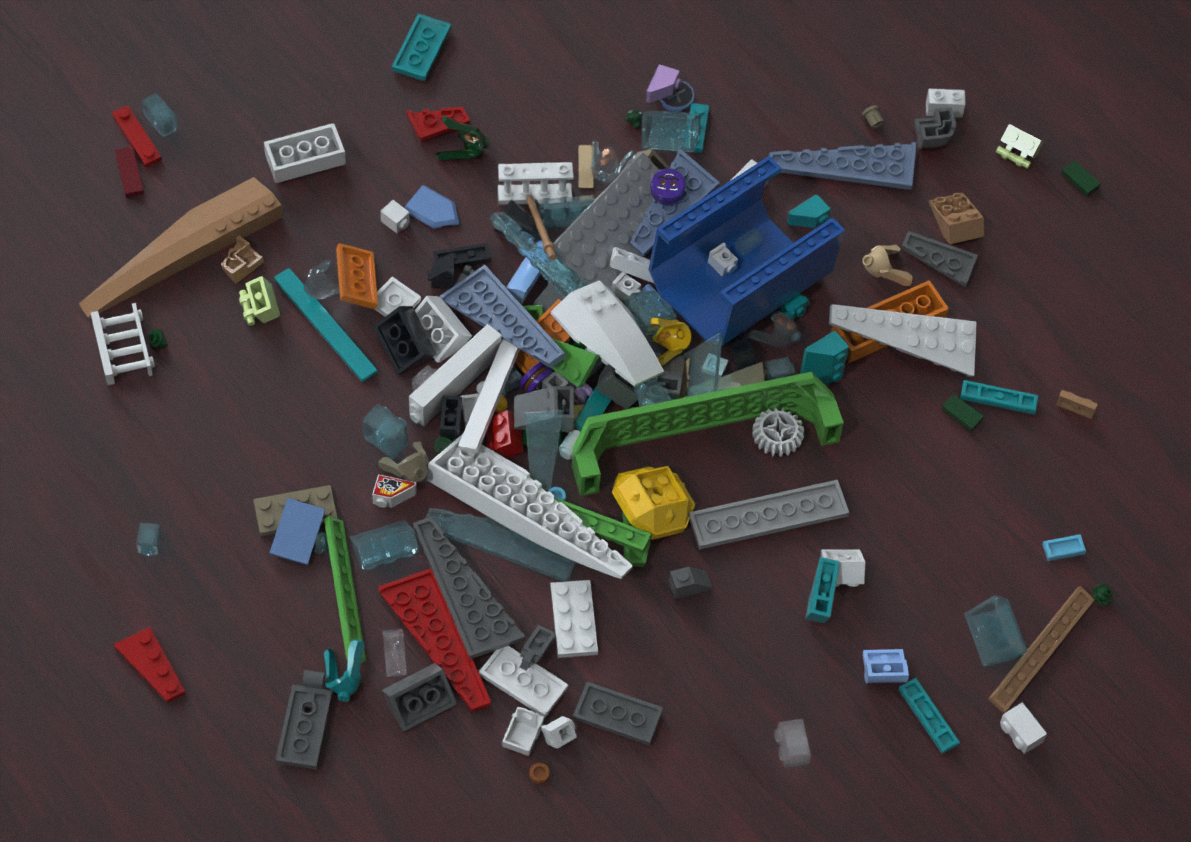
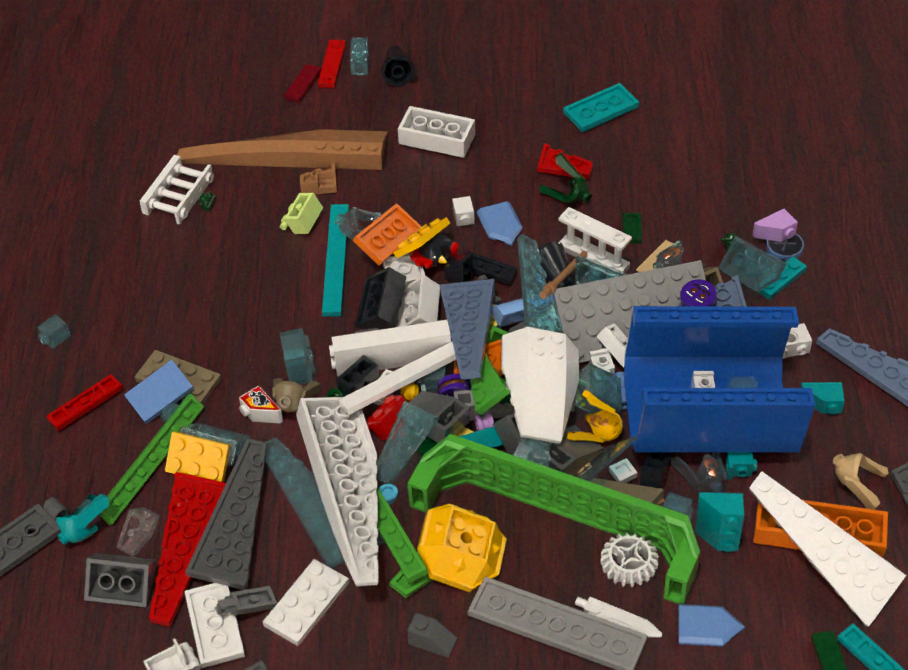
camera: 45 degrees right, 10 degrees down
(206, 105) = (397, 67): none -> black cone
(240, 580) = (84, 402): none -> red plate
(386, 563) = (197, 456): none -> yellow plate
(390, 262) = (418, 239): none -> yellow plate
(407, 271) = (430, 253): none -> piece
(543, 149) = (632, 227): none -> dark green tile
(801, 480) = (618, 616): none -> white piece
(866, 446) = (706, 625): none -> medium blue tile

